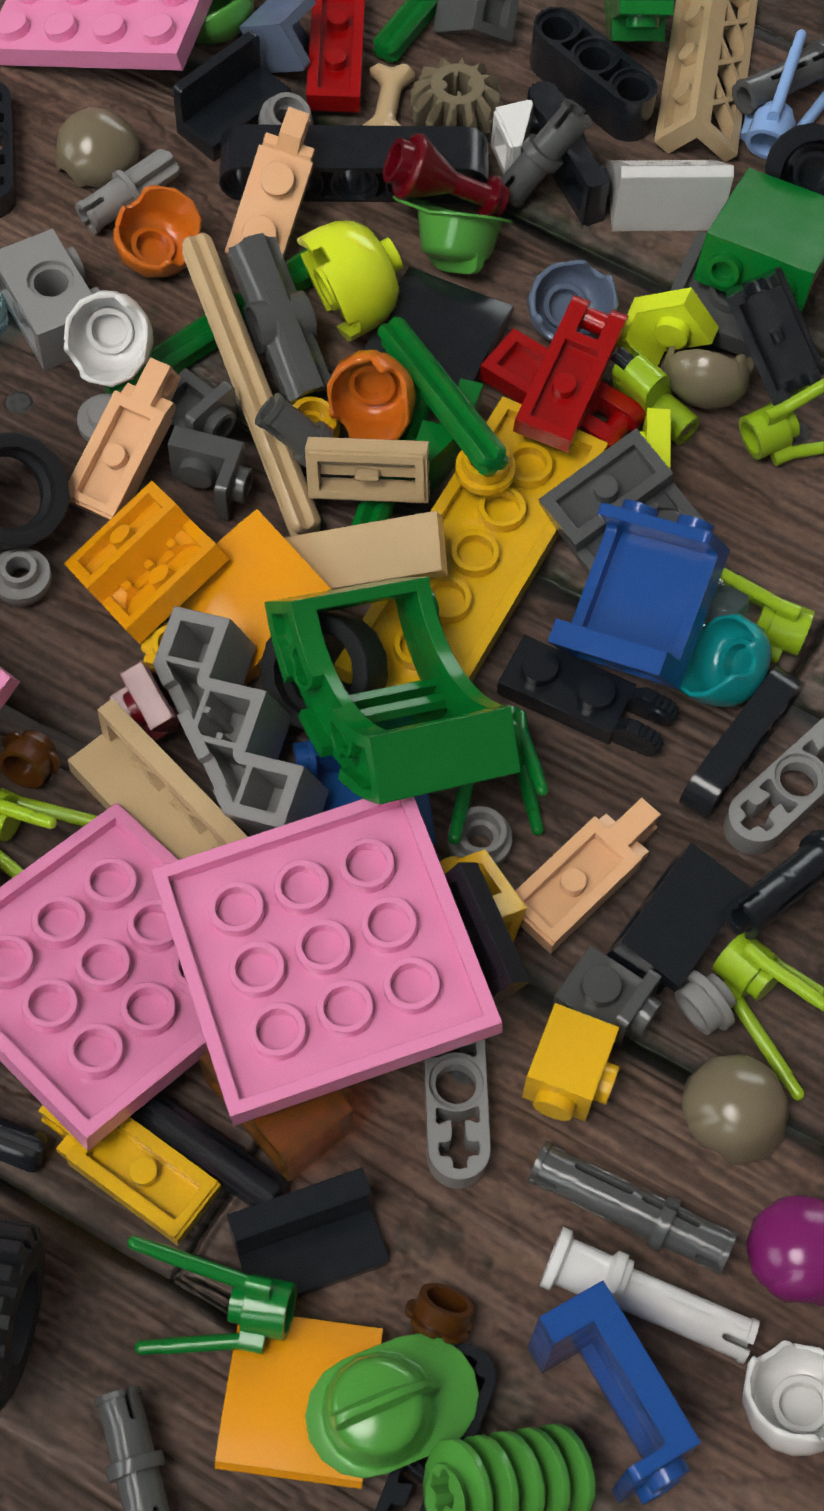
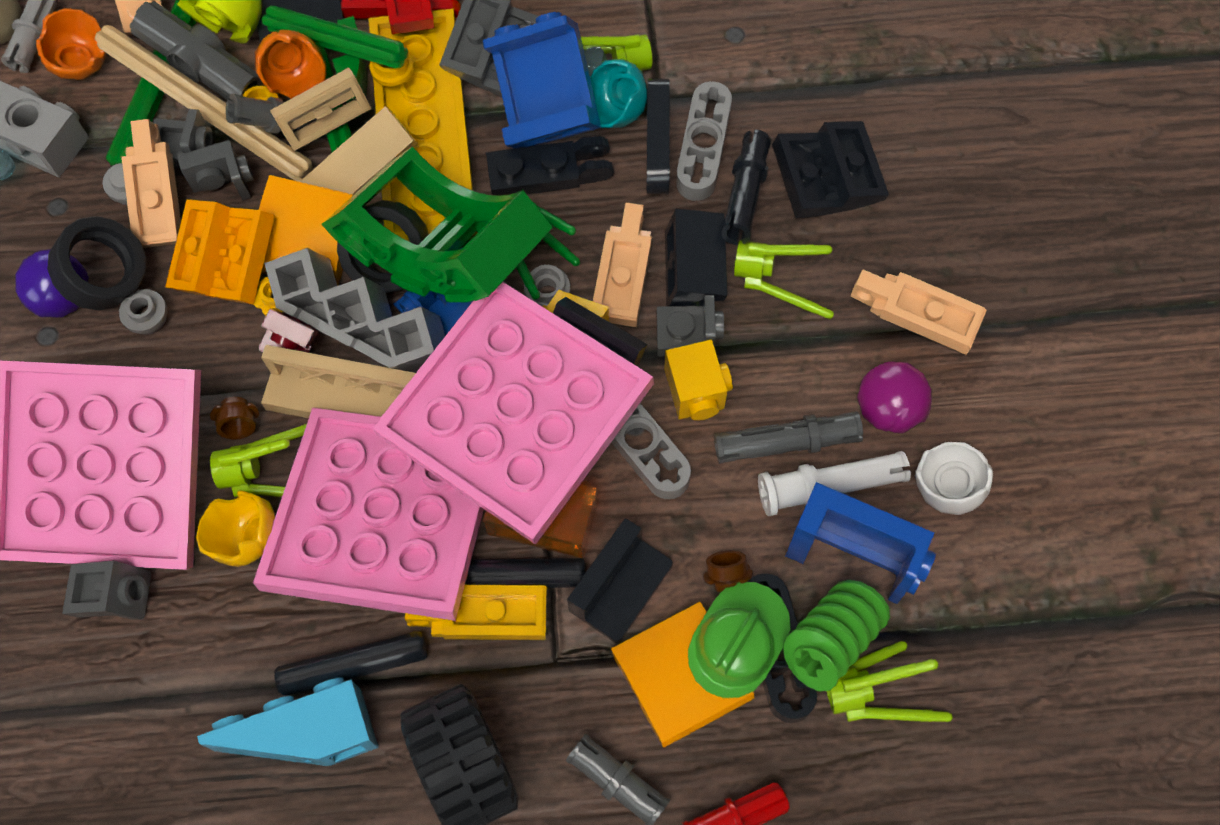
camera: 30 degrees left, 5 degrees up
(108, 338) = (91, 127): white hair -> none
(257, 1303) = (622, 637): green plant -> none
(706, 1002) = (746, 295): light grey plate -> none
(736, 1108) = (803, 343): dark tan hair -> none

